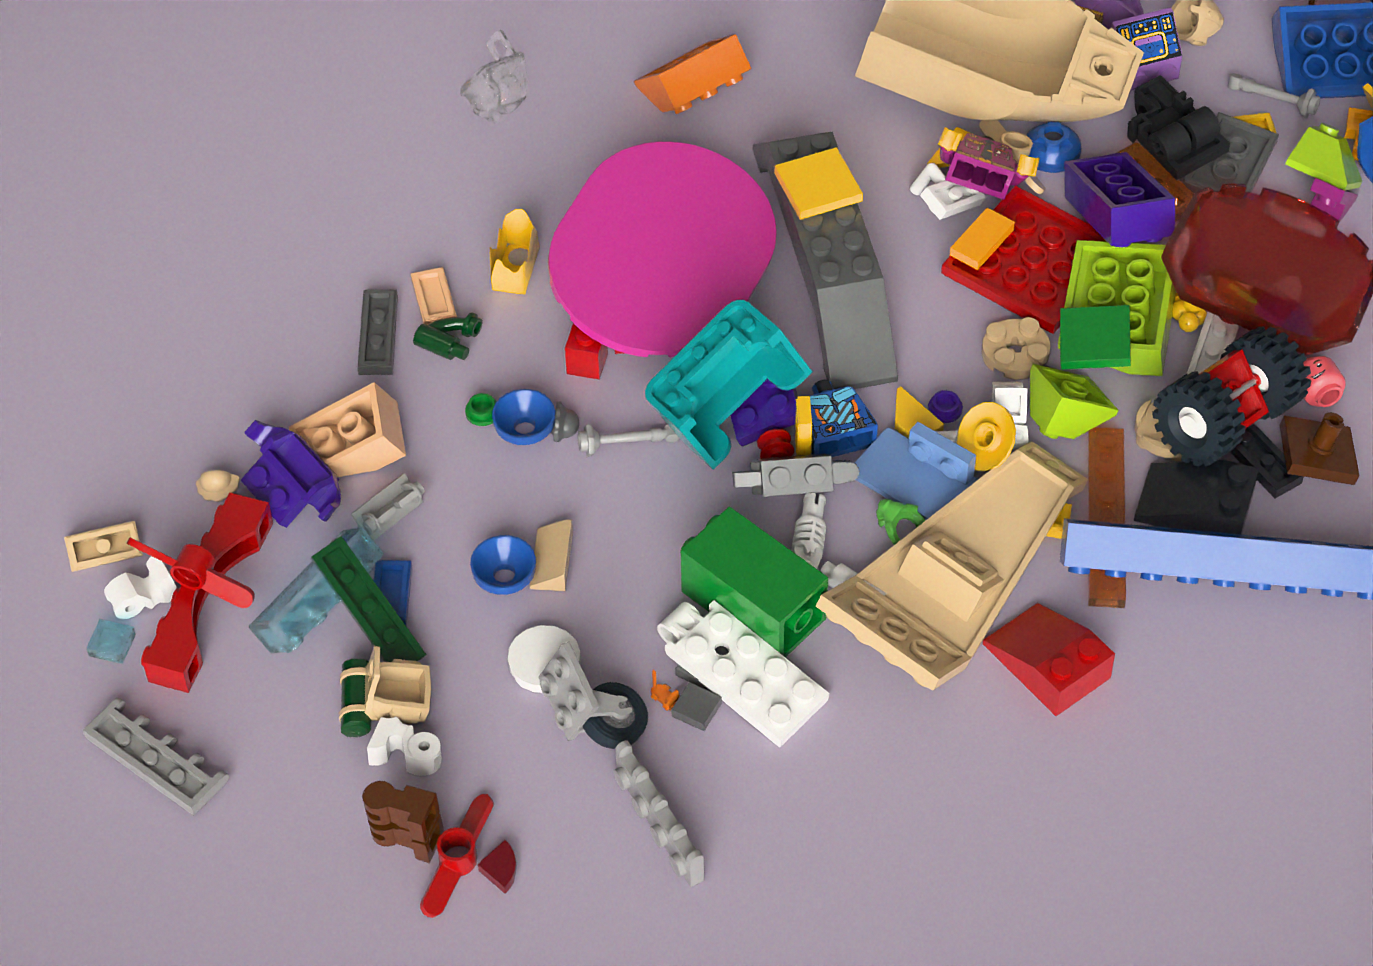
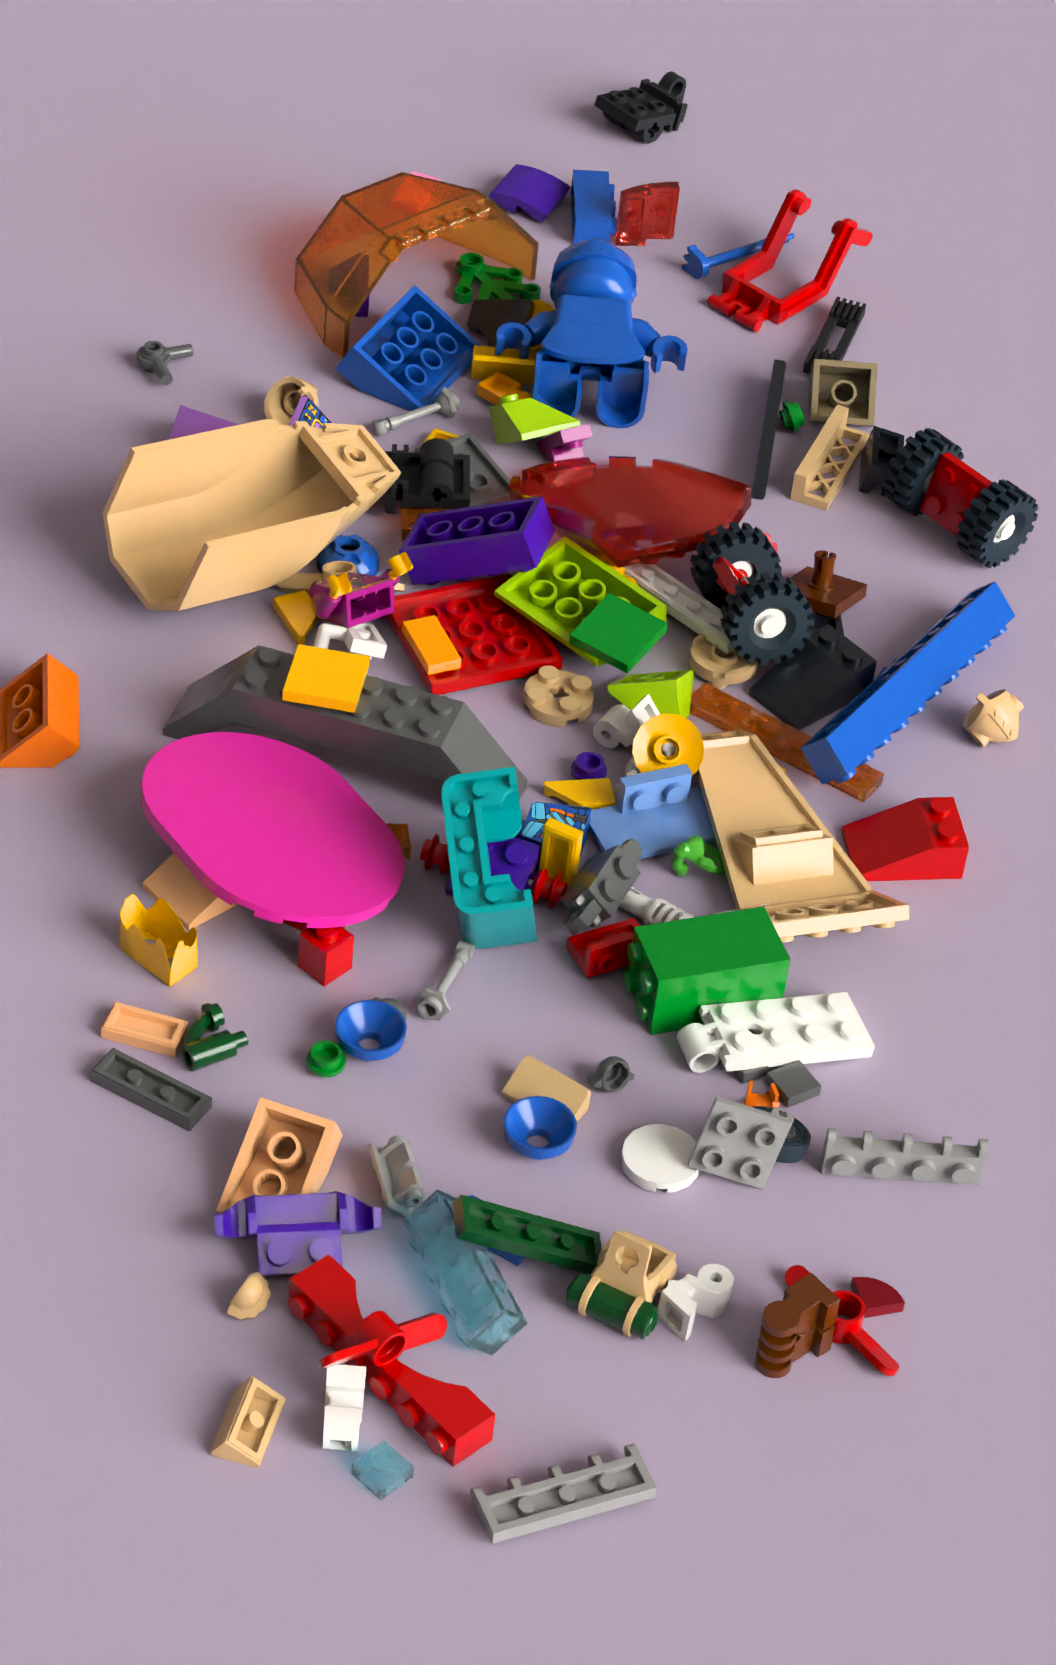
camera: 65 degrees left, 10 degrees down
(605, 585) = (611, 1074): none -> dark grey piece
(761, 514) = (602, 948): none -> red bracket
(1268, 645) = (994, 718): none -> tan helmet

